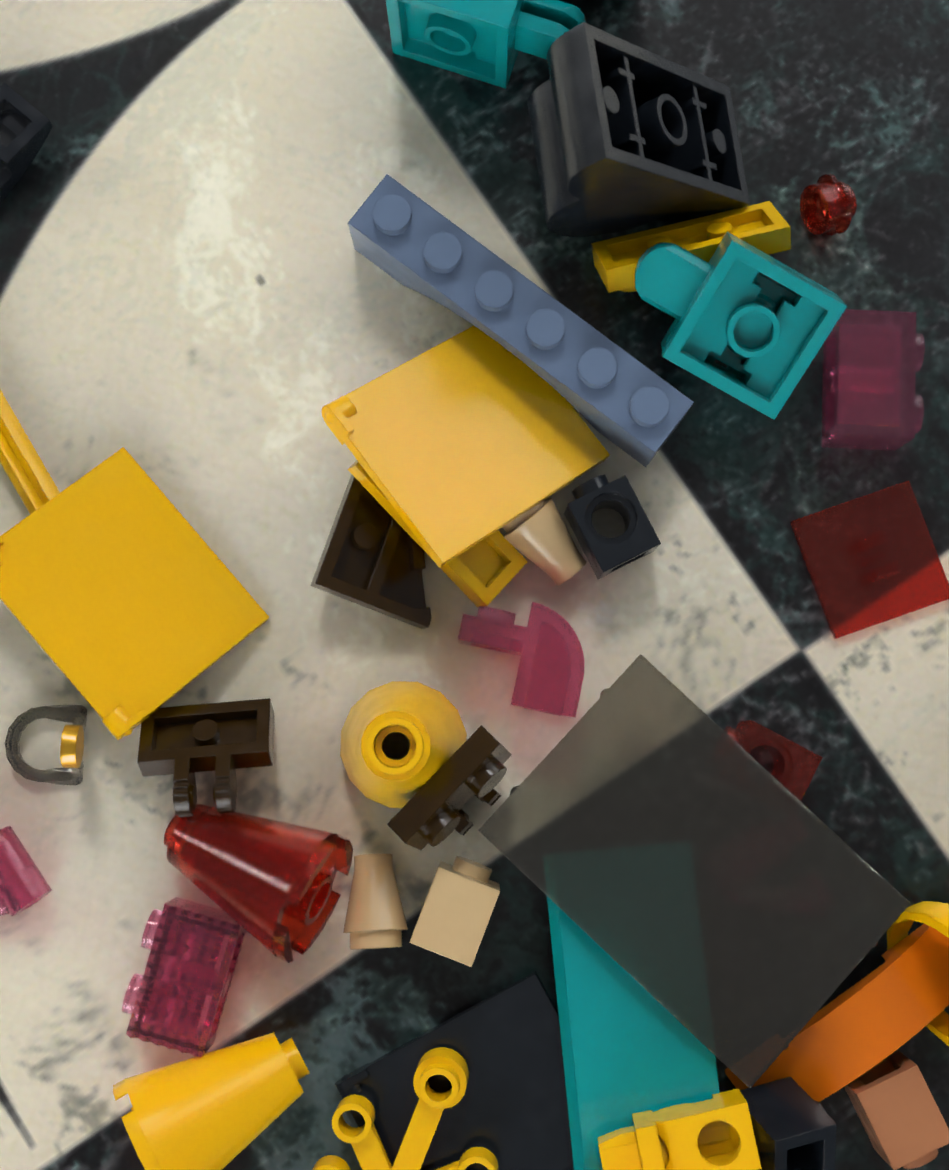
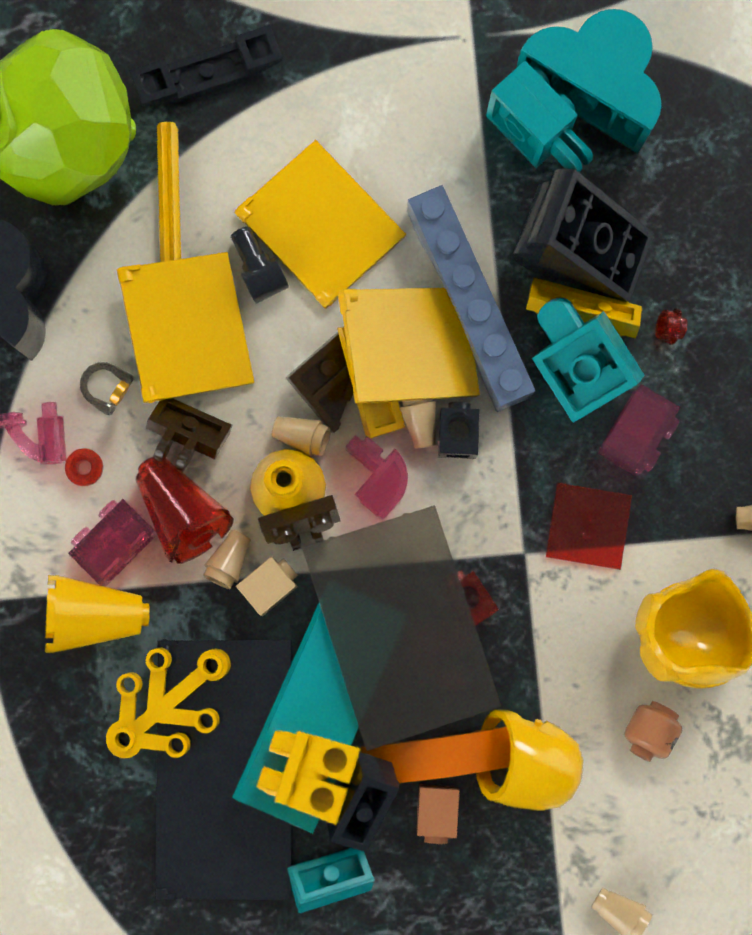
camera: 25 degrees right, 0 degrees up
(64, 890) = (72, 467): none -> clear red plate
(189, 450) = (260, 272): none -> black pin
(238, 333) = (320, 223): none -> yellow piece
(382, 656) = (302, 434): none -> tan cone

